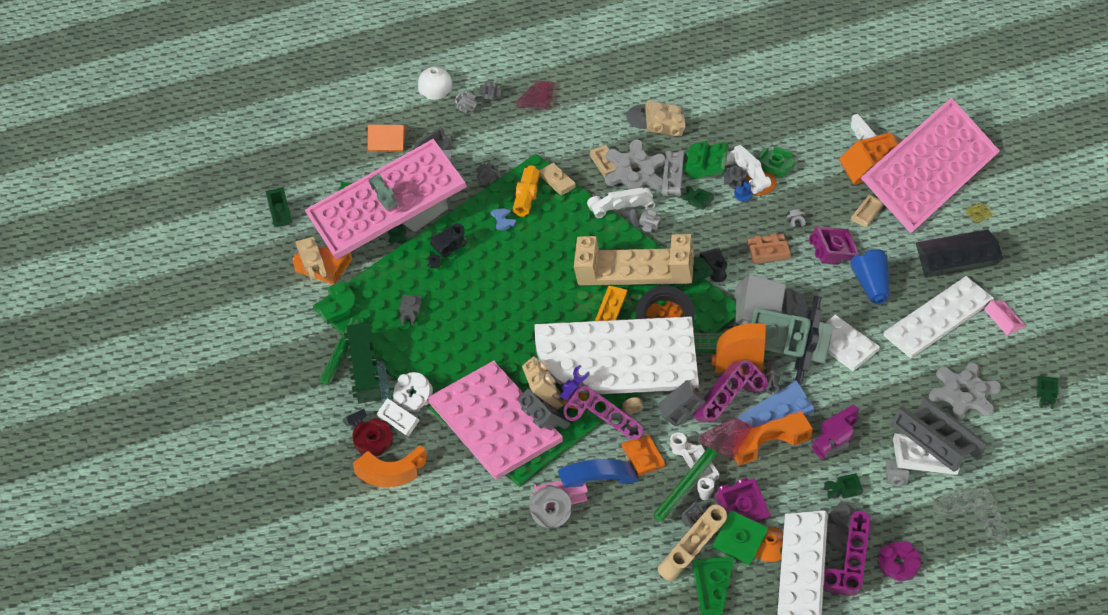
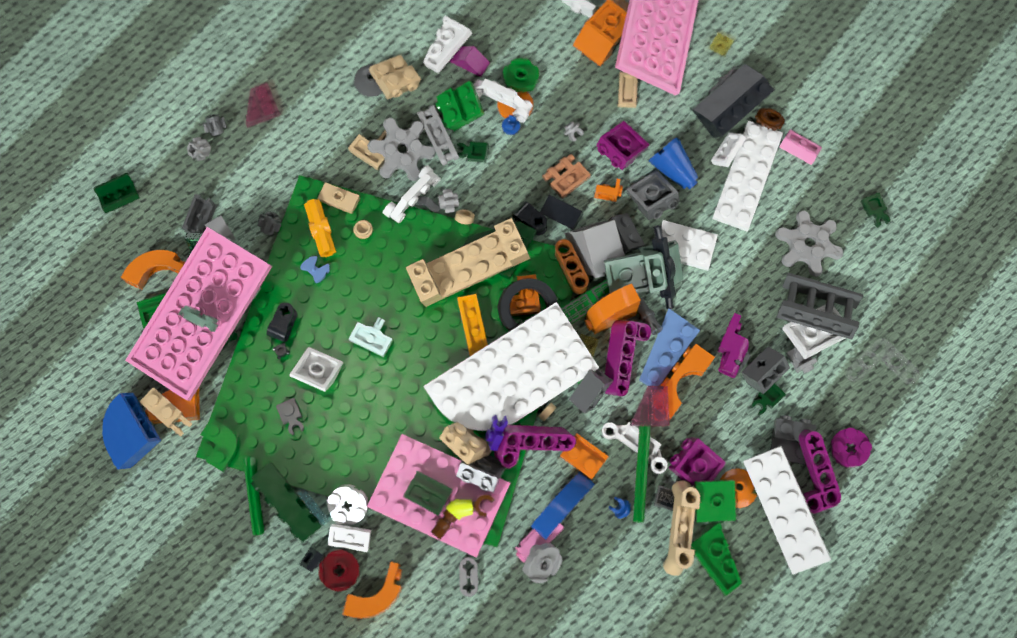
camera: 30 degrees left, 25 degrees up
(271, 260) = (127, 431): none -> blue brick
(278, 207) = (95, 365): dark green slope -> none
(365, 161) = (147, 264): none -> orange arch
(378, 103) = (116, 193): none -> dark green bracket
(386, 138) = (146, 226): orange slope -> none
(434, 83) = (155, 140): white cylinder -> none
(455, 285) = (316, 369): none -> white slope
(476, 492) = (463, 577): none -> light grey beam
(485, 405) = (428, 493): none -> dark green plate
(505, 428) = (456, 510): none -> piece
(516, 283) = (371, 337): none -> light aqua plate
(562, 207) = (363, 229): none -> tan plate
(650, 507) = (623, 508): none -> blue plate
(656, 238) = (464, 216): none -> tan tile
(705, 376) = (590, 343): none -> clear yellow tile
(725, 306) = (571, 258): none -> dark orange beam
(728, 113) = (448, 41): none -> white wing
(734, 176) = (495, 112): dark grey gear -> none
(740, 134) = (471, 60): none -> magenta slope
(743, 265) = (561, 212): none -> black hinge
(798, 274) = (607, 192): none -> orange bracket
(838, 292) = (653, 195): none -> dark grey plate
(855, 461) = (765, 370): none -> dark grey brick
(932, 288) = (728, 149): none -> white plate
(987, 281) = (770, 118): none -> reddish brown gear

